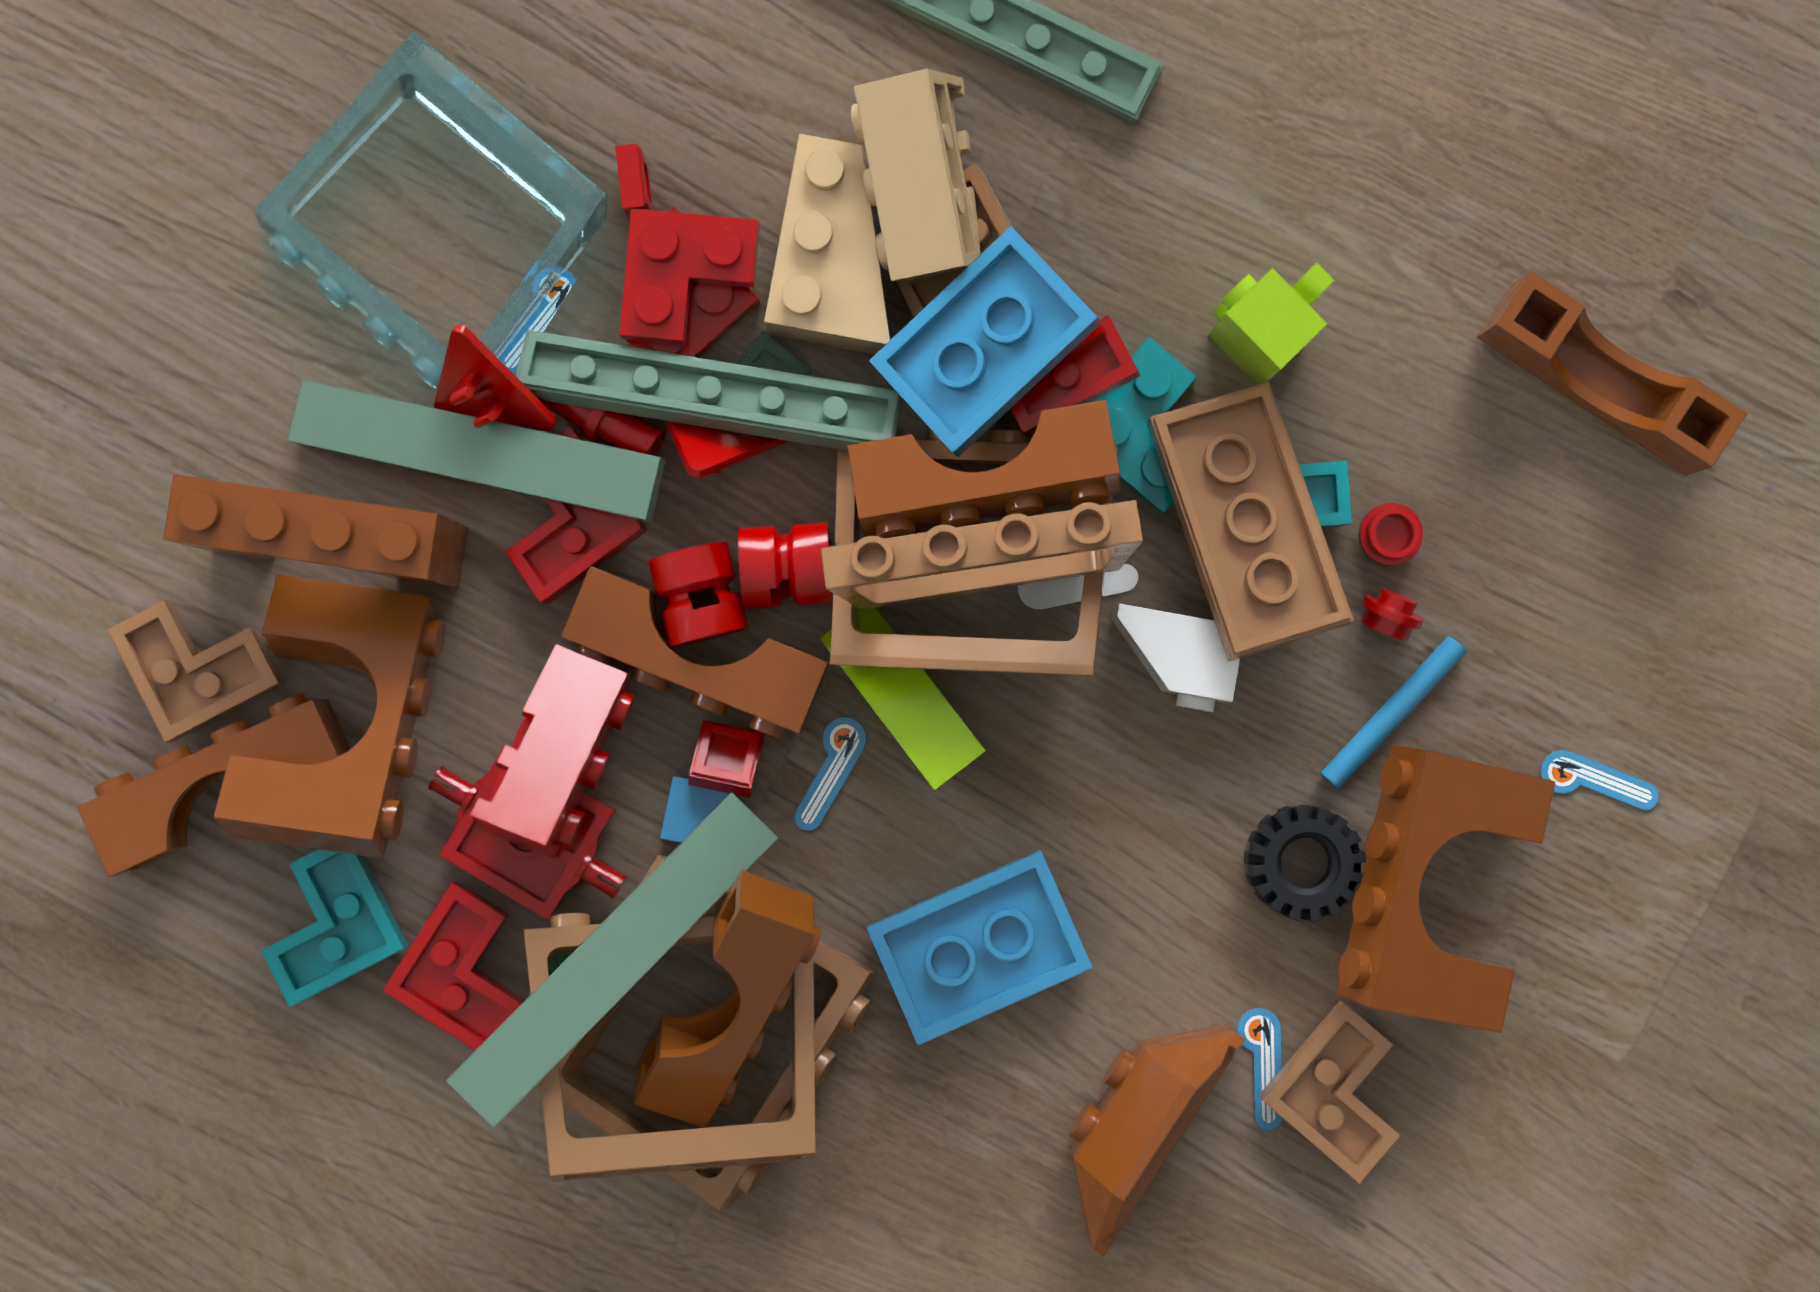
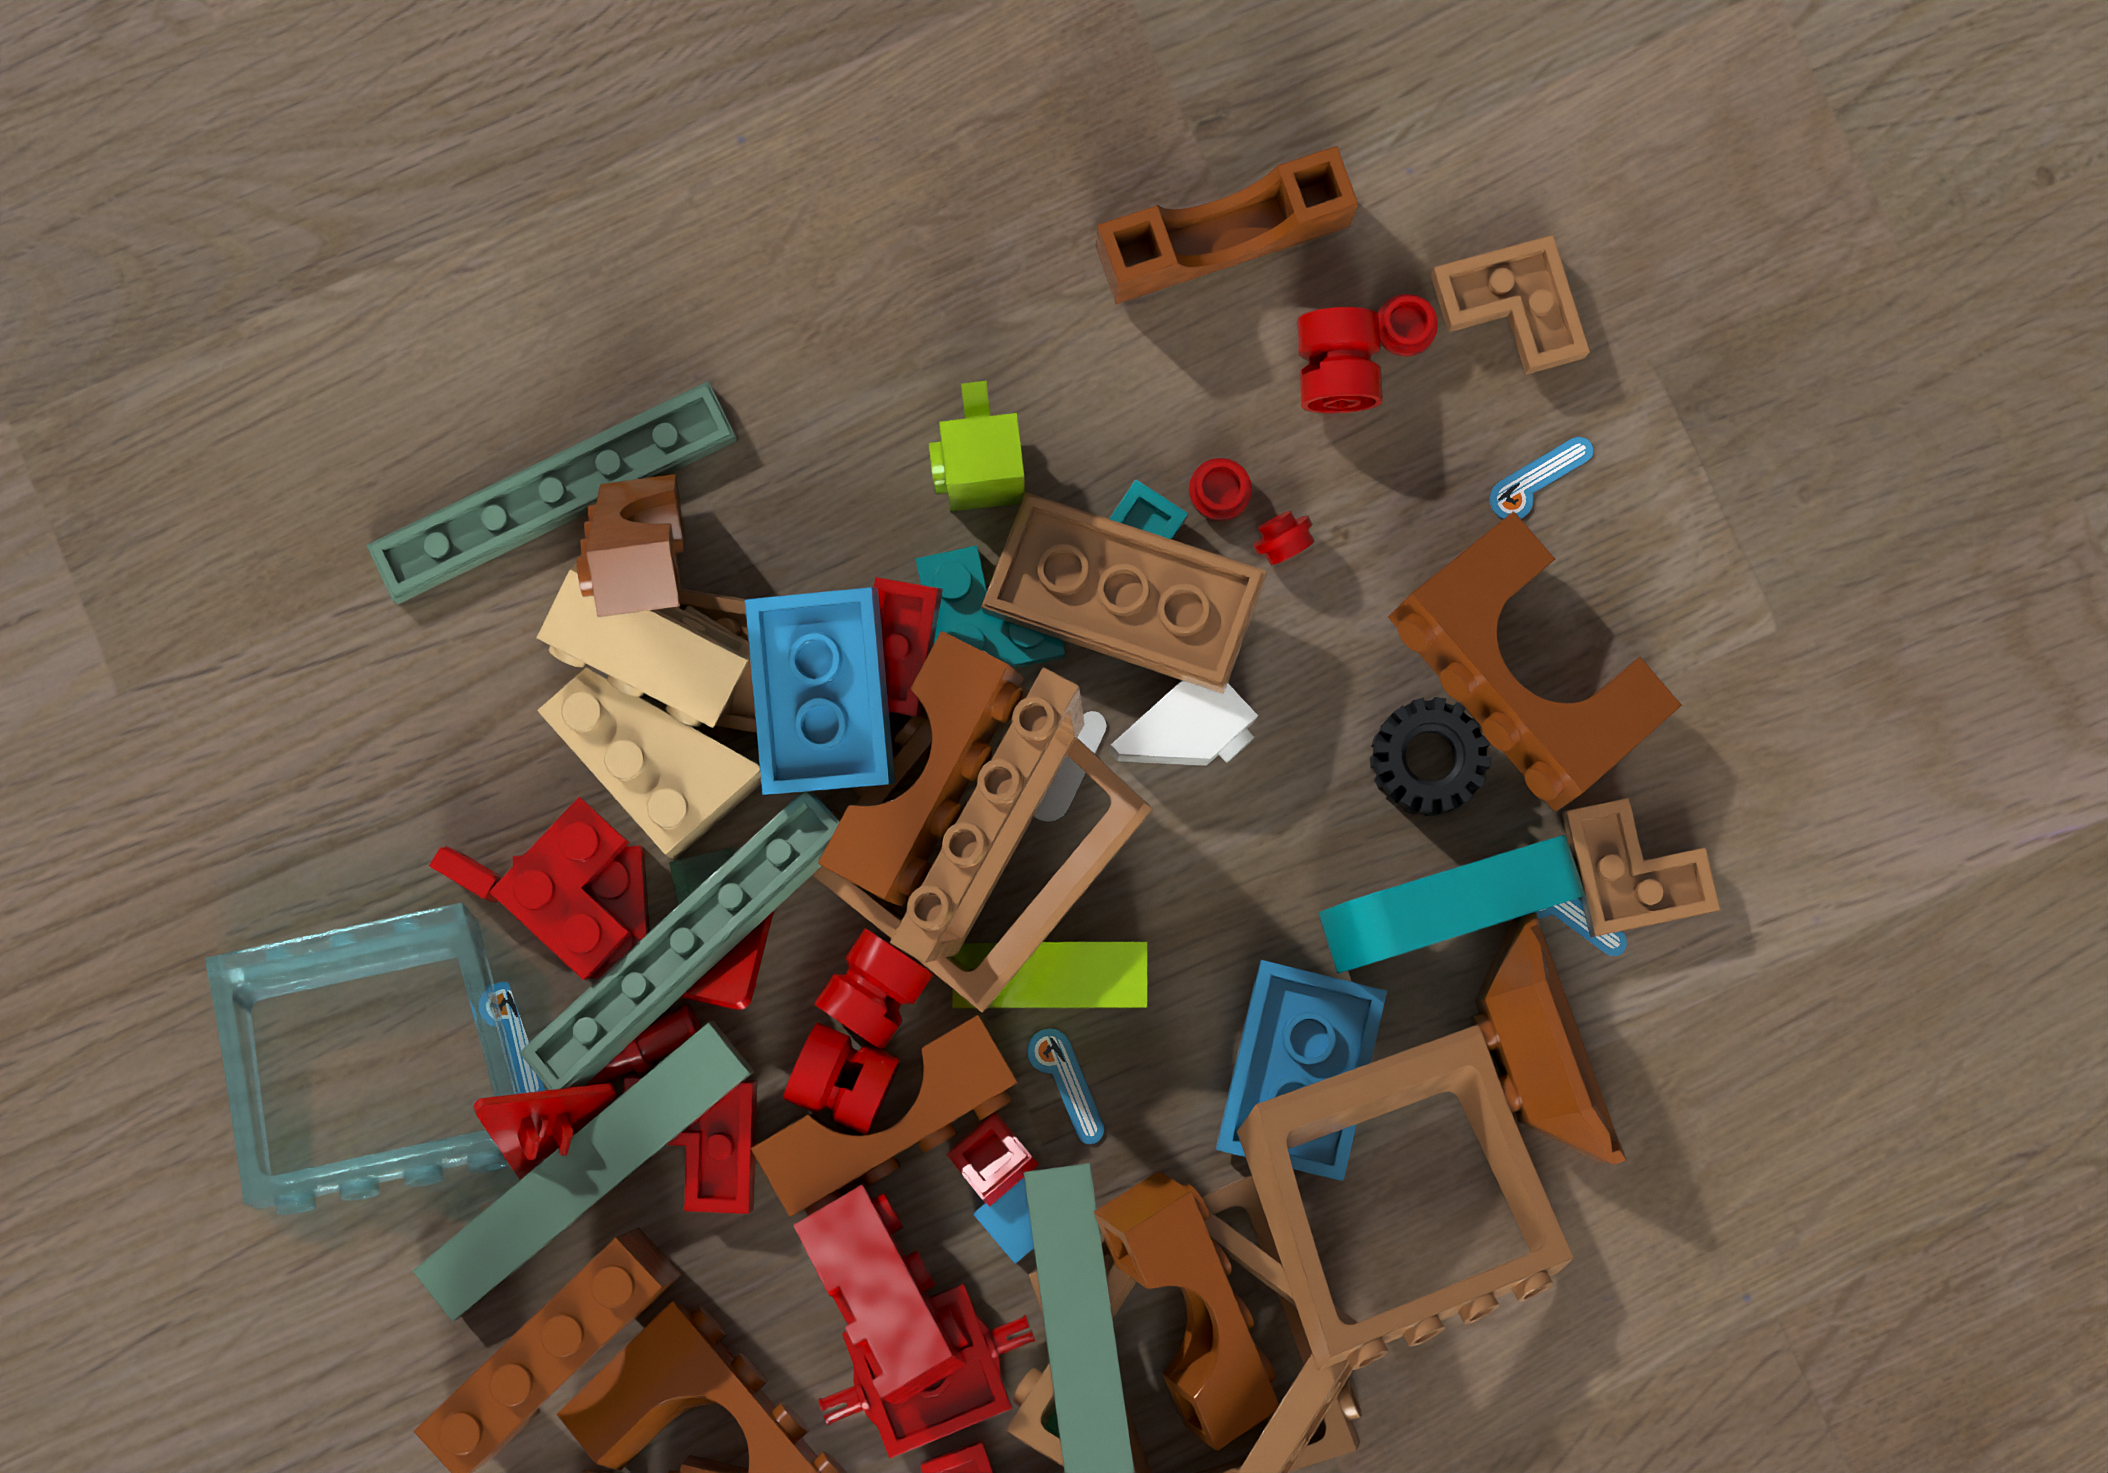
camera: 50 degrees left, 5 degrees down
(983, 102) = (633, 546): none -> dark orange arch
(1076, 1065) = (1450, 1064): none -> medium nougat windscreen
(1200, 968) = (1451, 903): none -> teal beam
(1393, 712) = (1363, 596): dark azure bar -> none
(1578, 542) = (1339, 355): none -> red wheel
(1640, 581) = (1407, 325): none -> red plate
(1745, 650) = (1520, 284): none -> medium nougat plate

